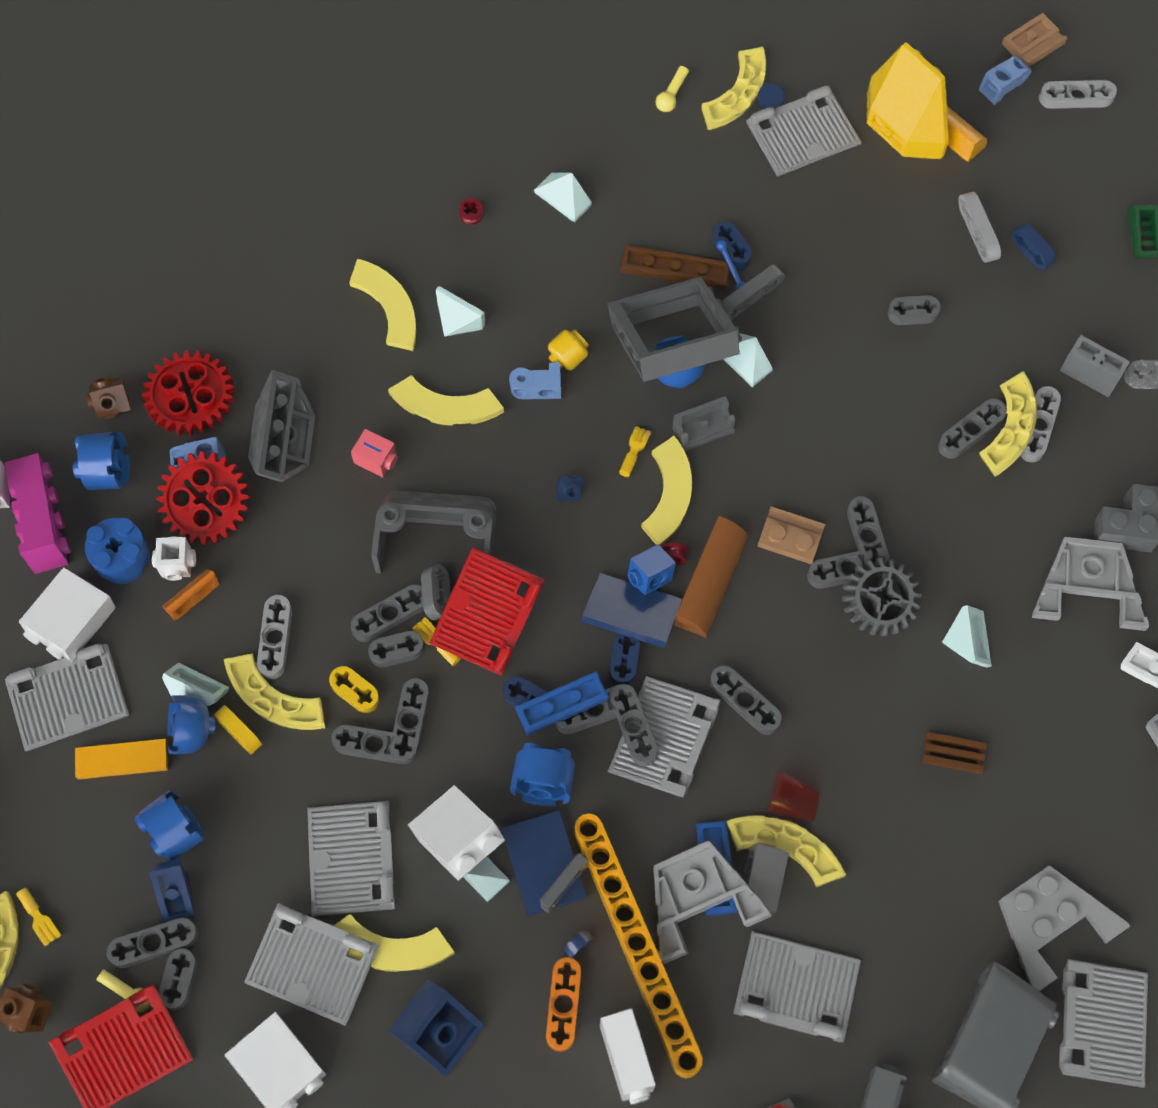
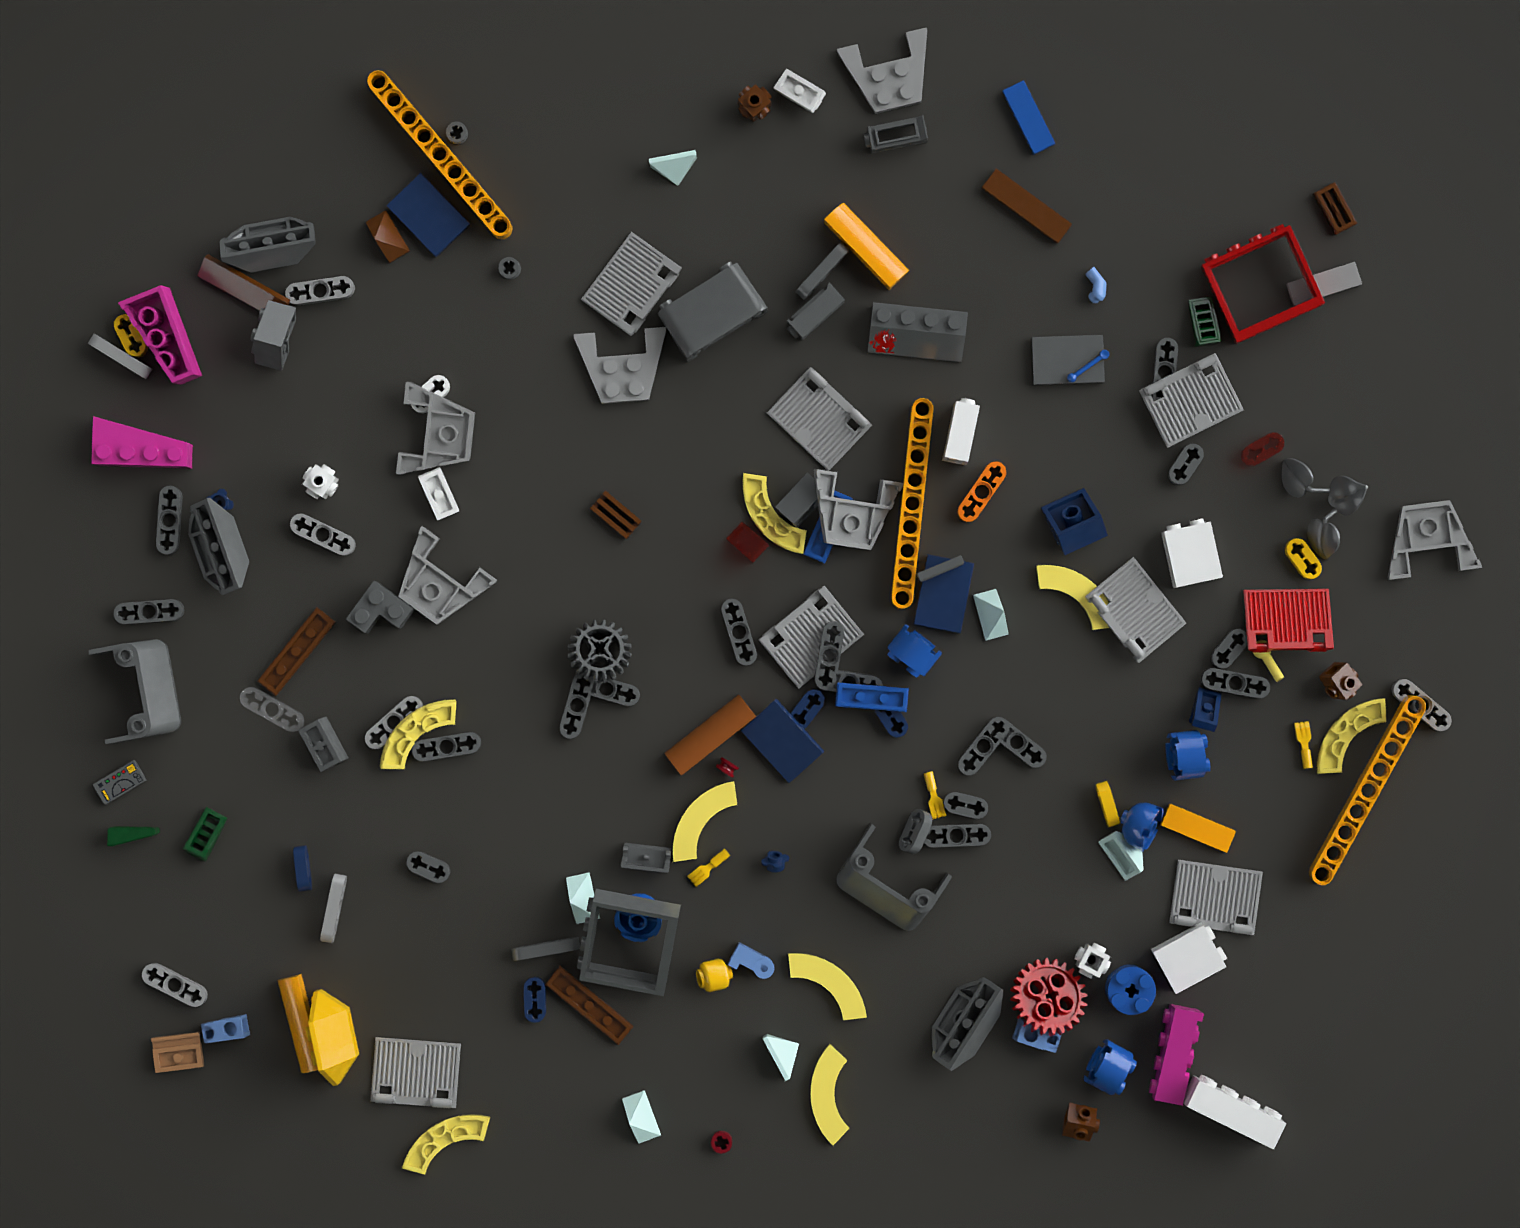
camera: 150 degrees left, 20 degrees up
(163, 401) = (1040, 1097): red gear -> none
(191, 594) = (1092, 929): orange slope -> none
(270, 703) = (1075, 815): light yellow tile -> none
(279, 657) = (1051, 843): light grey beam -> none
(350, 695) = (1005, 793): yellow beam -> none
(350, 858) = (1073, 670): light grey window -> none
(374, 453) = (904, 967): coral brick -> none
(456, 832) = (995, 642): white brick -> none
(486, 611) = (889, 793): red window -> none
(578, 943) = (950, 524): dark blue tile -> none
(651, 569) = (753, 762): blue brick -> none
(666, 100) = (508, 1161): light yellow bar -> none
(722, 245) = (548, 959): blue hinge -> none
(770, 96) = (423, 1117): dark blue tile -> none
(791, 535) = (632, 737): medium nougat plate -> none
(969, 636) = (552, 589): light aqua slope -> none

